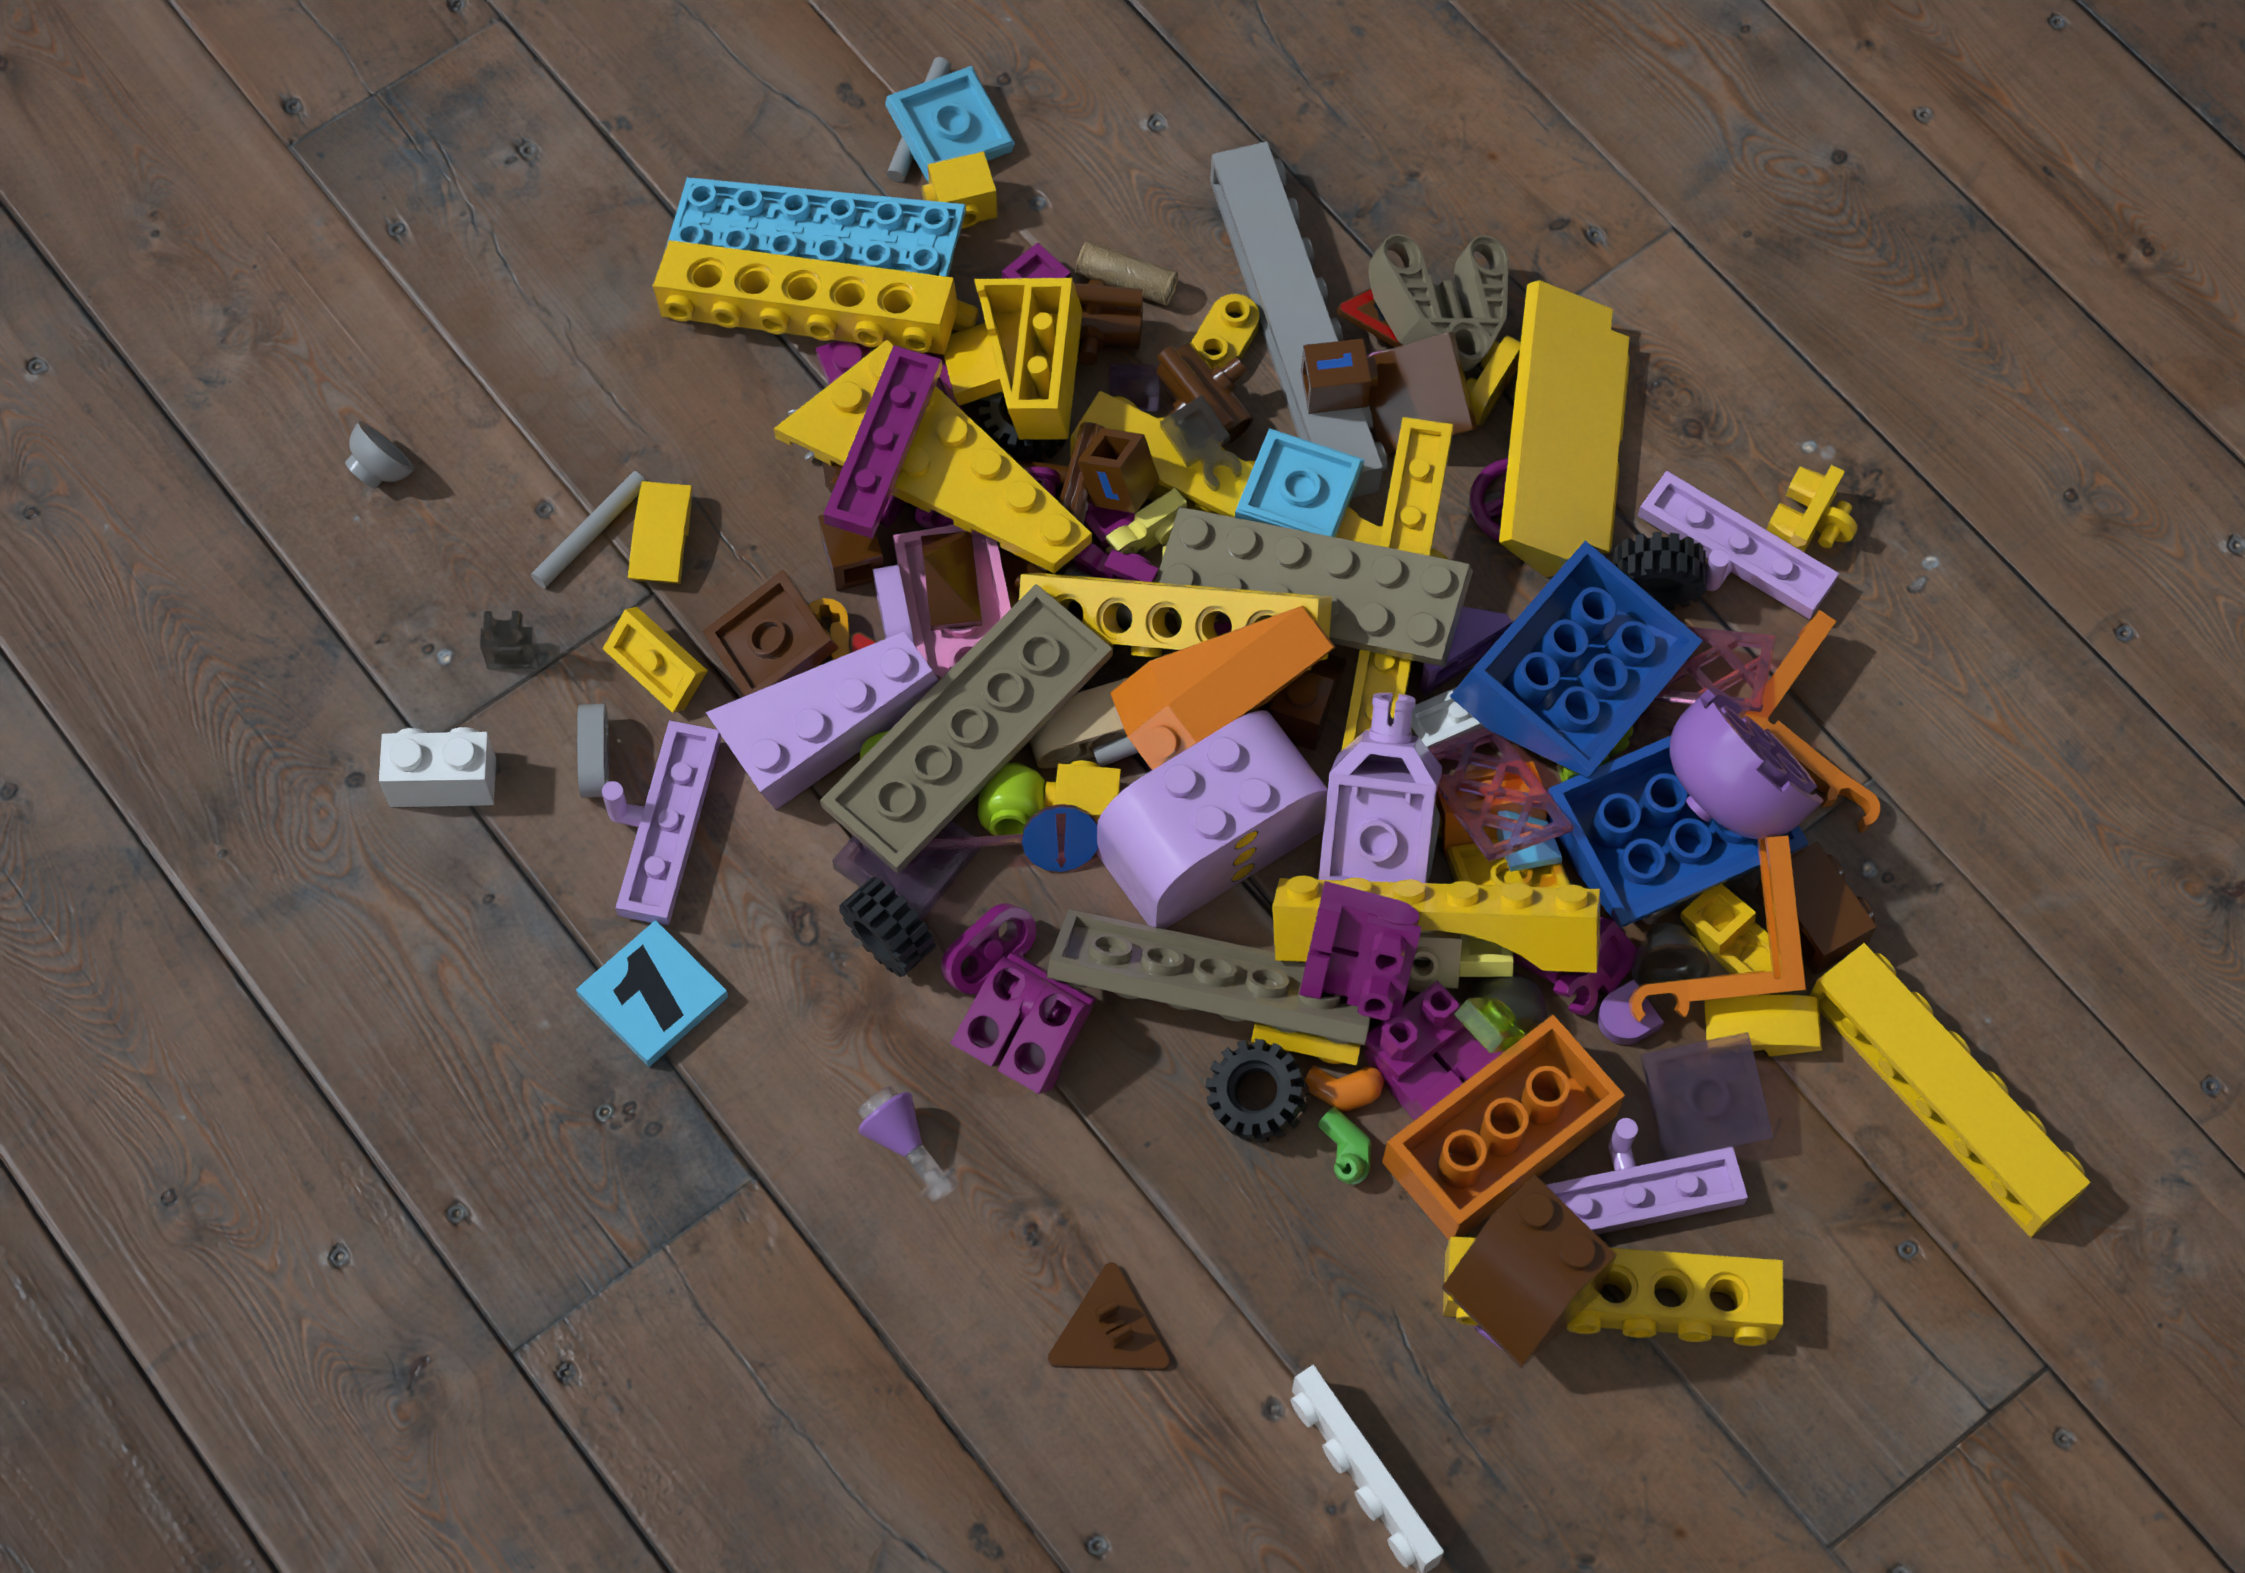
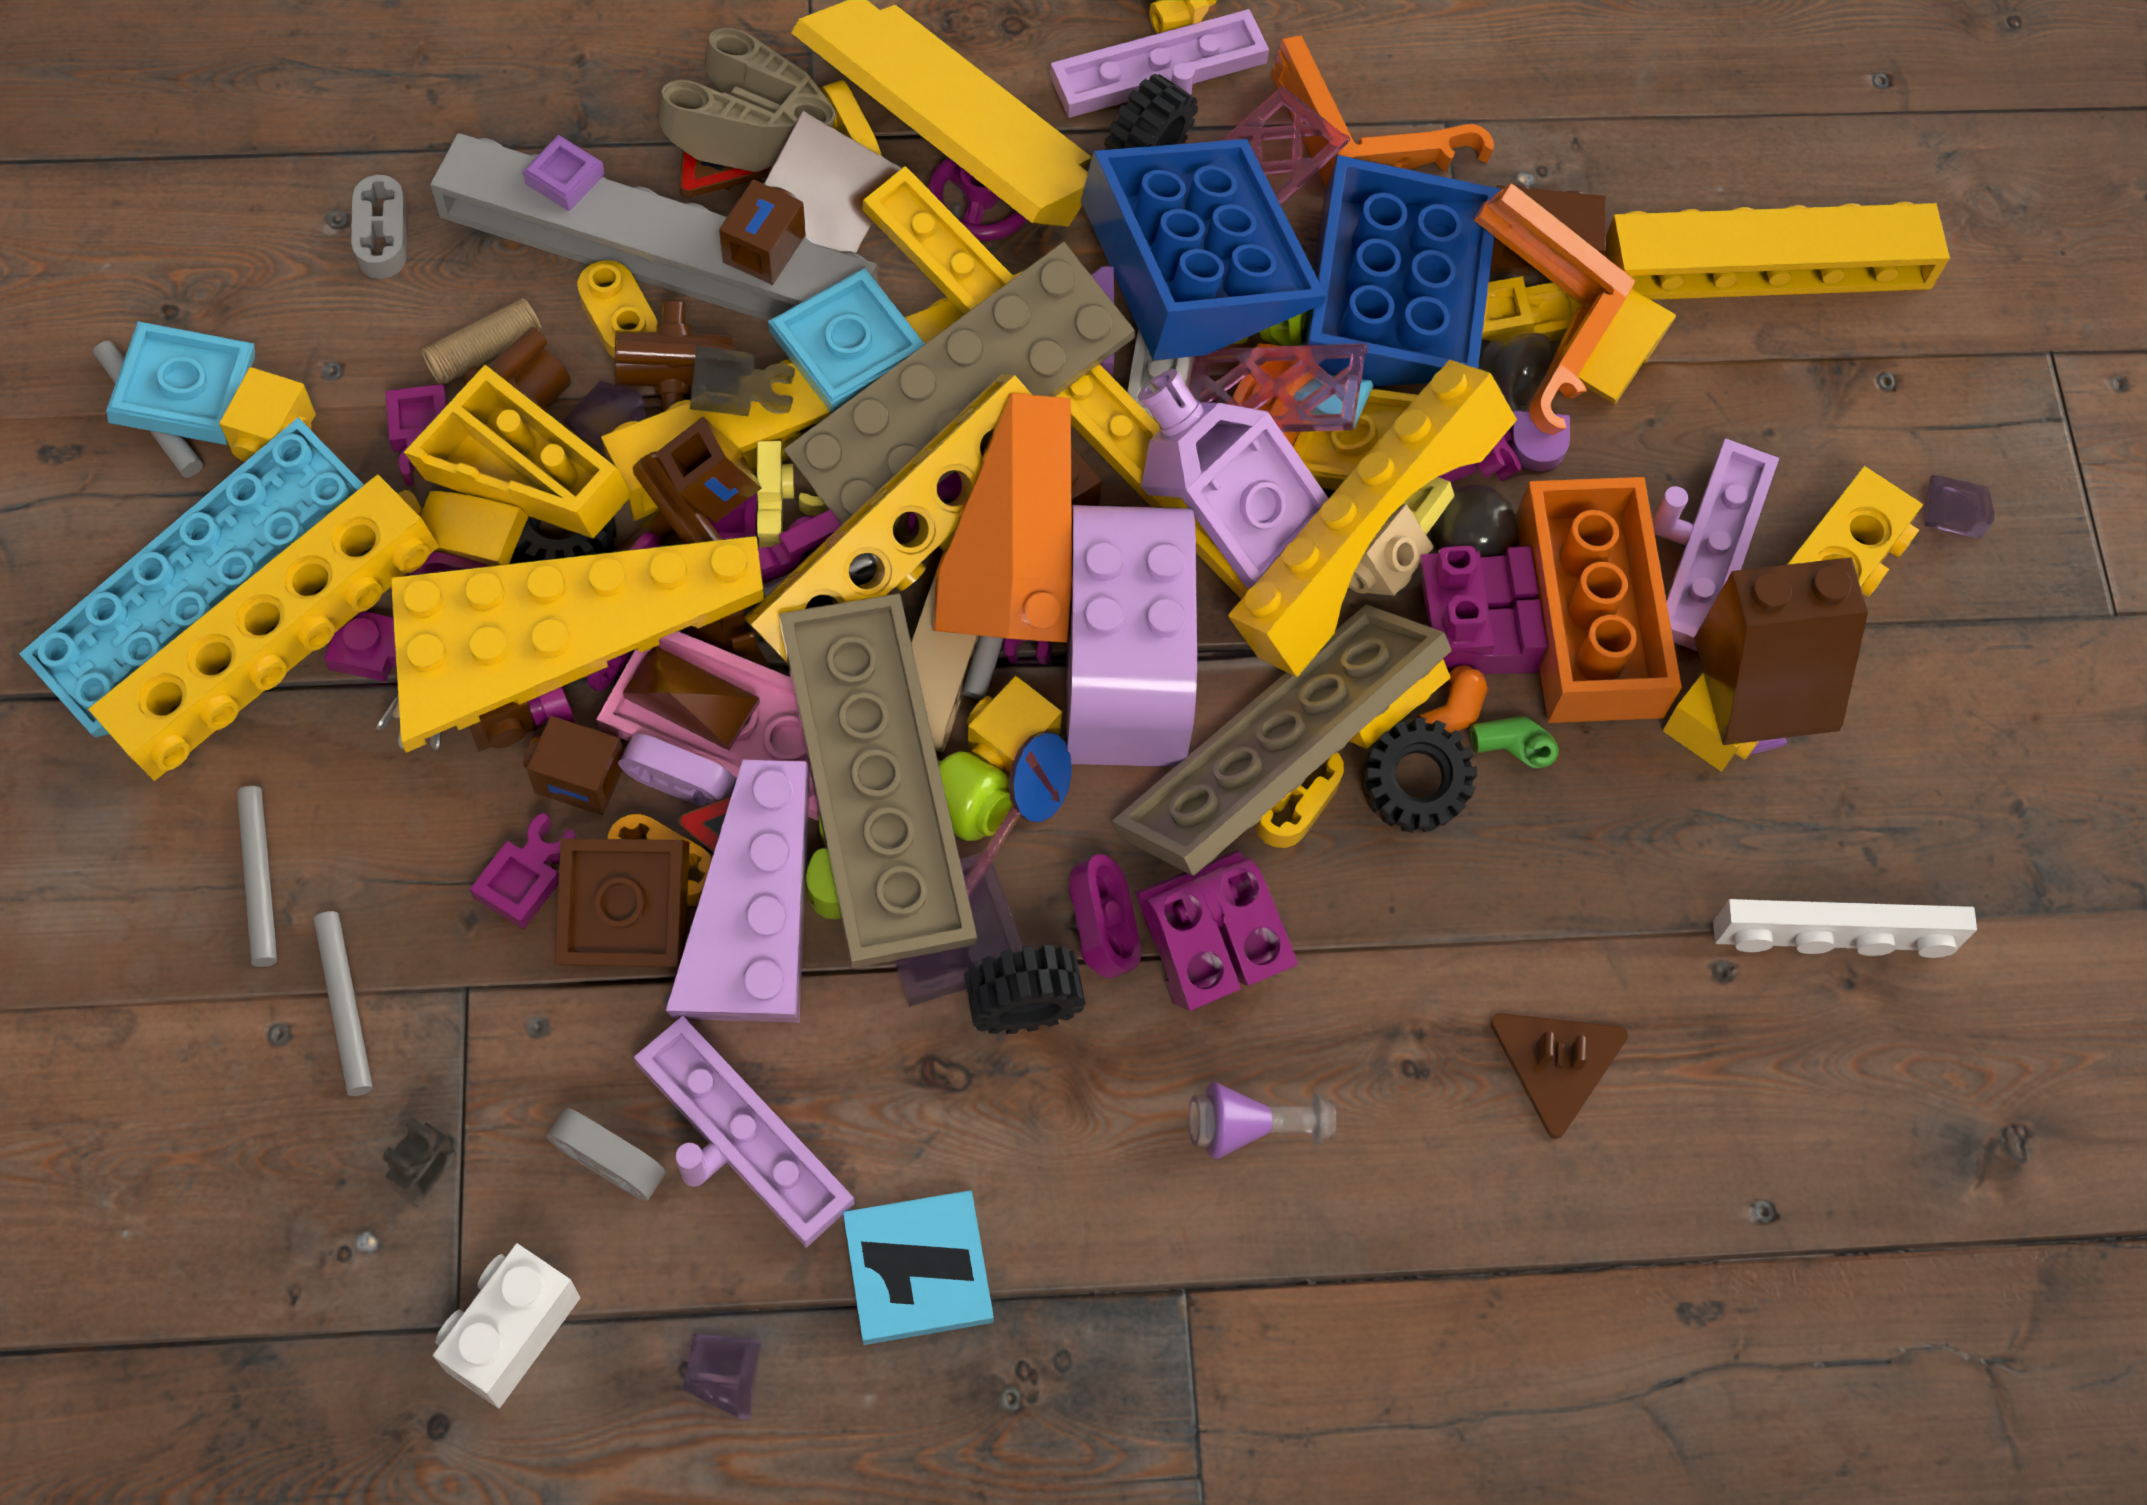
camera: 60 degrees left, 0 degrees up
(376, 457) = (79, 1165): light grey piece -> none
(499, 921) = (724, 1372): none -> clear purple slope
(638, 419) = (256, 876): none -> light grey bar
(654, 659) = (550, 1029): yellow plate -> none
(660, 532) = (407, 934): yellow slope -> none
(746, 567) = (521, 879): none -> magenta plate
(882, 442) = (515, 646): magenta plate -> none
(1171, 156) = (391, 226): none -> light grey beam
(1181, 1035) = (1308, 808): none -> yellow beam
(1286, 225) = (563, 172): none -> medium lavender tile
(1362, 950) = (1372, 587): magenta hips -> none
(1490, 1023) = (1502, 535): clear neon green plate -> none
(1706, 1096) = (1666, 426): clear purple plate -> none
(1738, 770) = (1418, 182): medium lavender cylinder -> none
(1828, 1366) = (1959, 507): none -> slope

